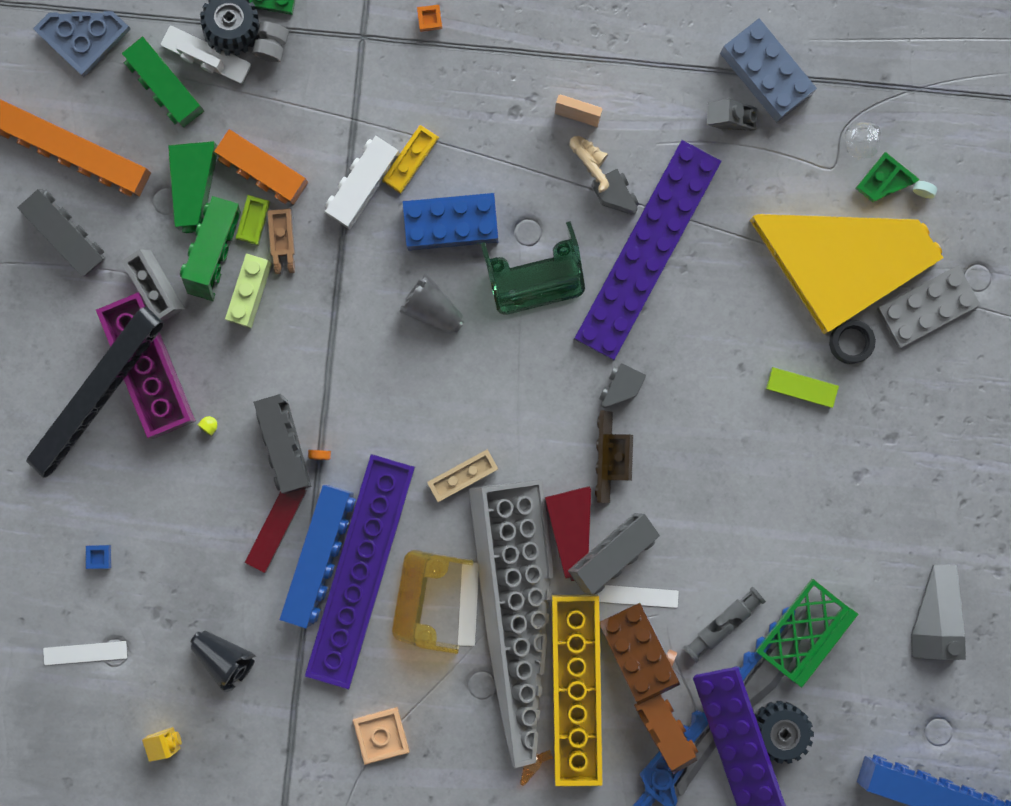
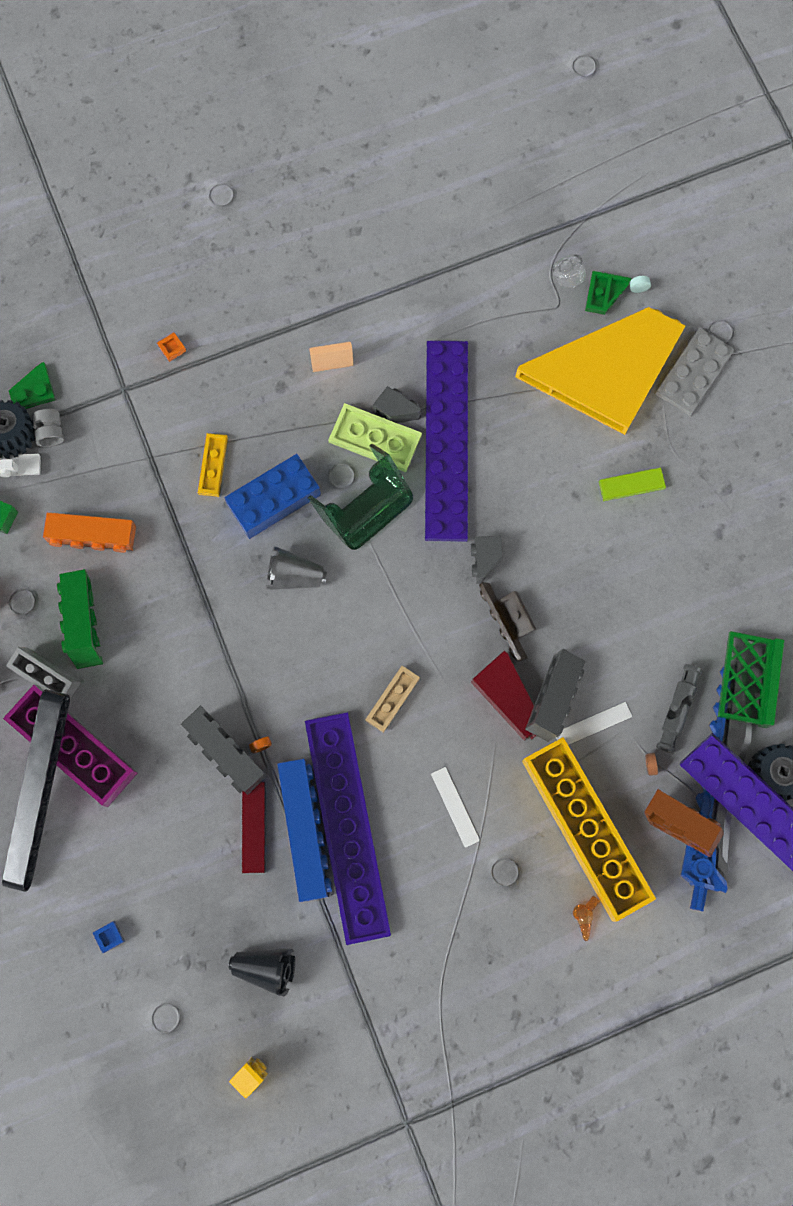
camera: 30 degrees left, 10 degrees down
(85, 653) = (138, 1032): white sticker -> none
(191, 181) = (35, 572): green slope -> none
(208, 425) = (150, 770): neon yellow hinge -> none
(248, 291) = (129, 638): yellowish green brick -> none
(253, 220) = (104, 579): lime tile -> none
(281, 238) = (136, 581): medium nougat hinge -> none
(362, 182) = (182, 502): white brick -> none
(381, 735) = (440, 963): light nougat tile -> none
(416, 569) = (403, 824): clear yellow windscreen -> none
(515, 596) = (491, 777): light grey wedge -> none
(571, 200) = (358, 429): none -> yellowish green plate
(592, 159) = (362, 389): tan piece -> none
(639, 653) = (624, 768): reddish brown plate -> none
(731, 115) = (456, 302): dark grey slope -> none
(768, 70) = (466, 255): sand blue brick -> none
(869, 344) = (658, 414): black tyre -> none

